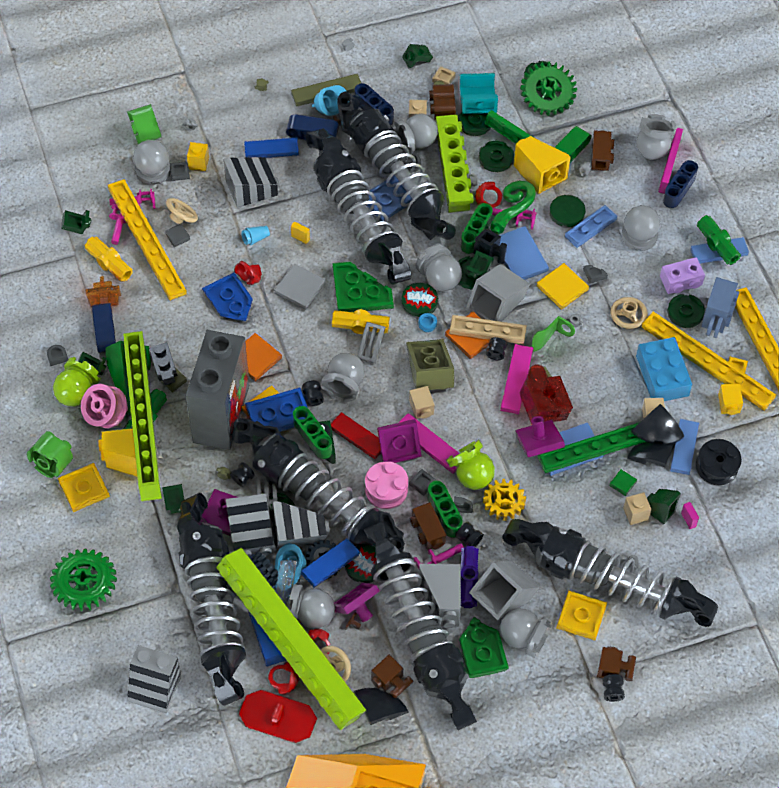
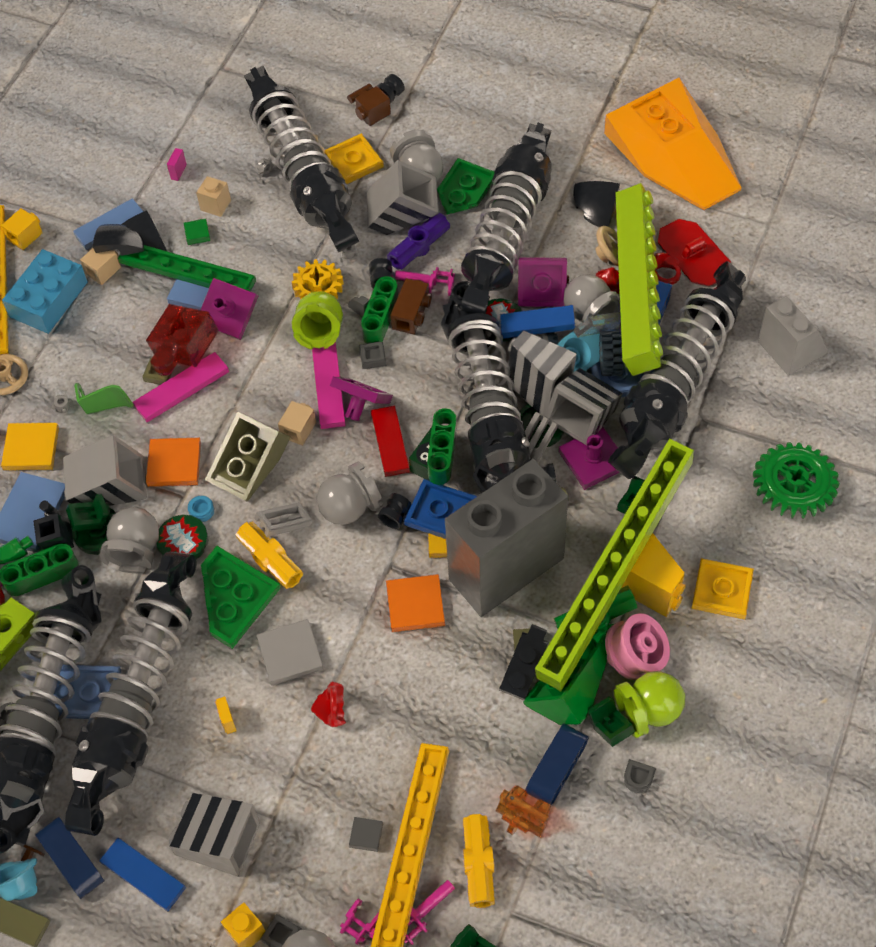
camera: 135 degrees left, 0 degrees up
(50, 455) = (741, 634): bright green brick -> none
(181, 212) = (340, 858): tan piece -> none
(229, 297) = (379, 699): blue tile -> none
(254, 234) = (278, 756): medium azure cone -> none
(386, 485) = (411, 368): bright pink wheel -> none
(389, 674) = (567, 212): reddish brown brick -> none
(444, 590) = (453, 229): light grey slope -> none
(487, 329) = (155, 448): tan tile -> none
(496, 349) = (168, 423): black wheel -> none
(663, 504) = (188, 177): dark green slope -> none
(718, 462) = (99, 187): black wheel -> none

